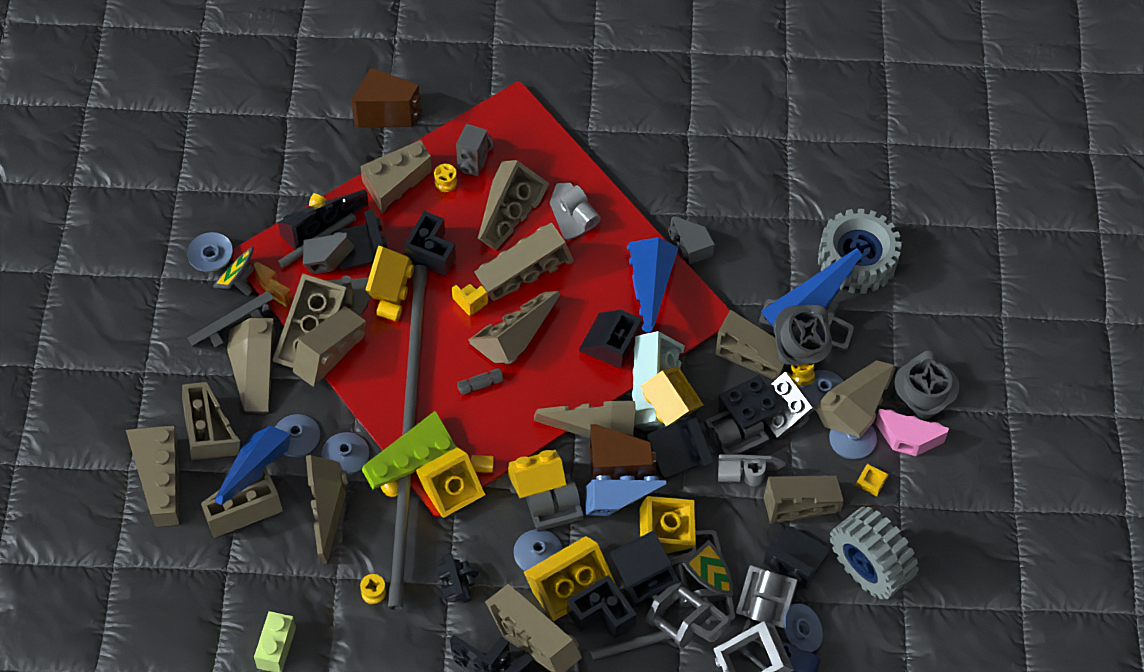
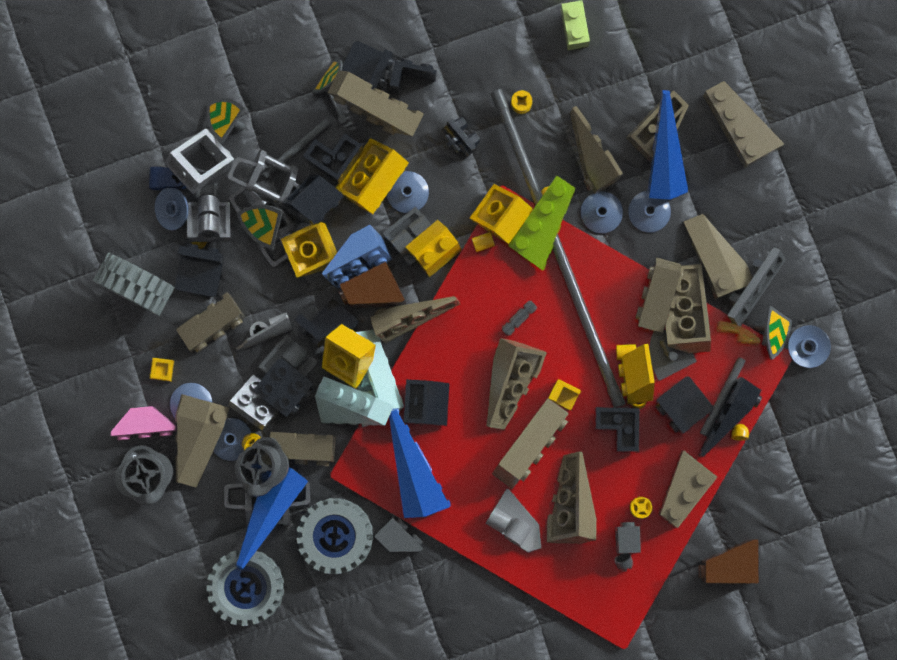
camera: 165 degrees right, 25 degrees up
(206, 425) = (724, 181): dark tan wedge -> none
(326, 252) = (706, 379): dark grey slope -> none
(683, 351) = (345, 404): none -> light aqua wedge
(768, 271) = (358, 539): none -> light grey wheel

